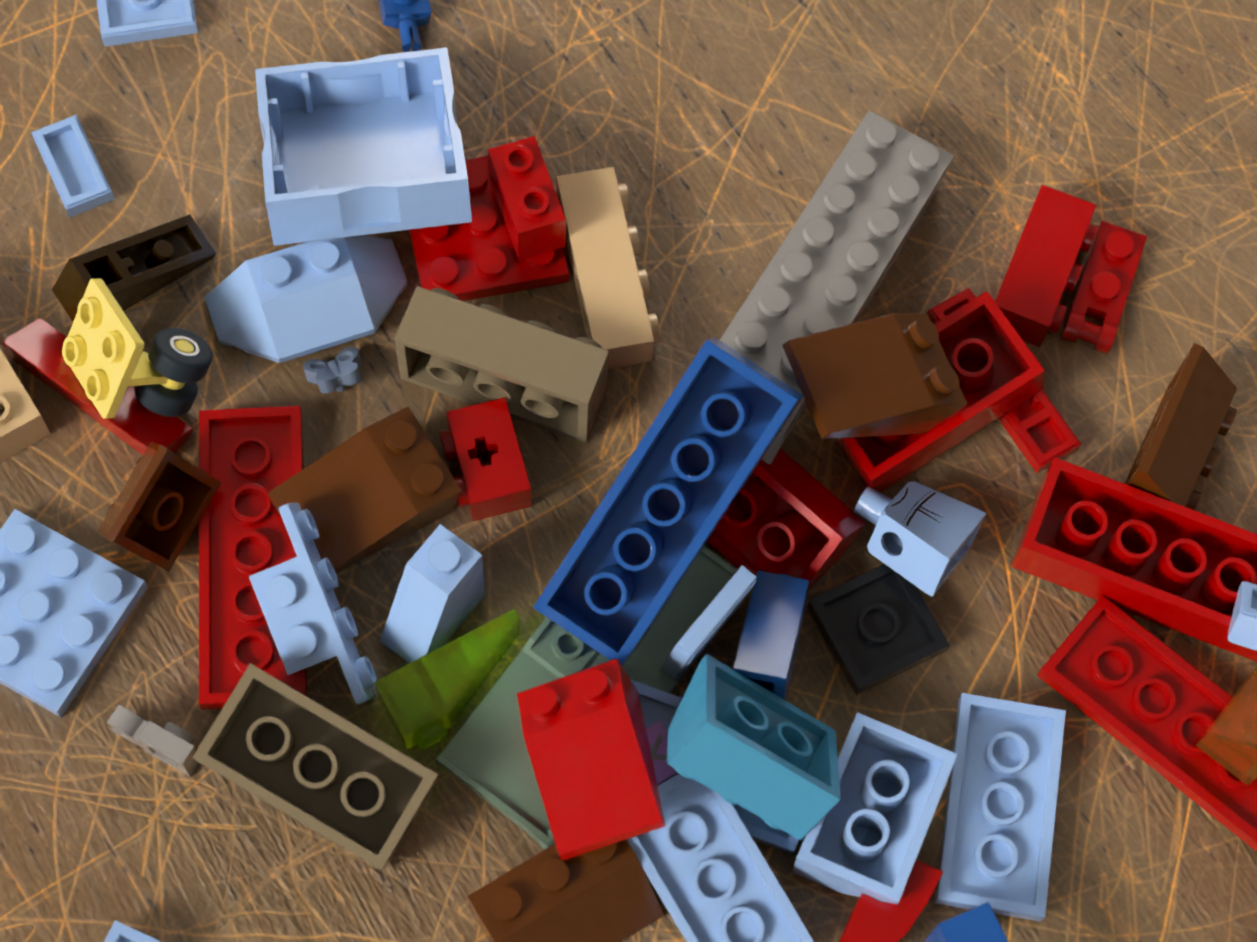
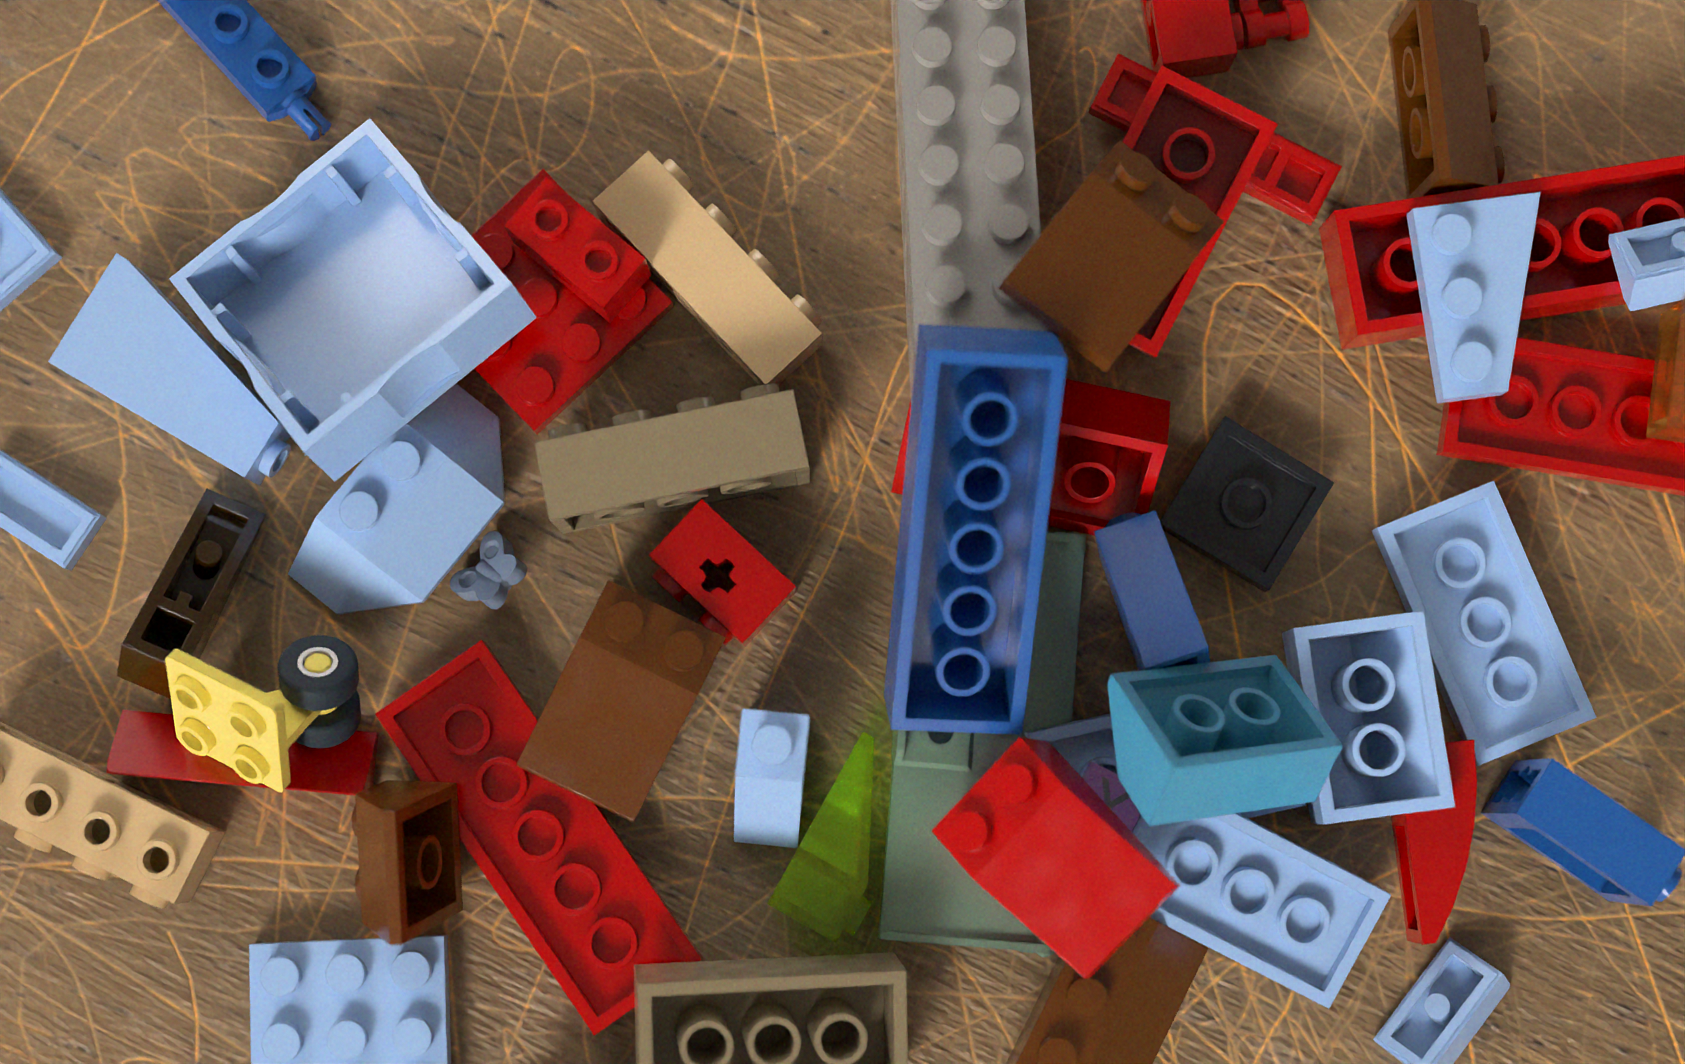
camera: 30 degrees left, 15 degrees up
(212, 126) = (162, 368): none -> light blue slope
(305, 611) = (646, 872): light blue bracket -> none
(709, 623) = (1081, 624): light blue tile -> none
(920, 532) = (1235, 378): light blue torso -> none
(1120, 558) = (1472, 289): none -> light blue wing

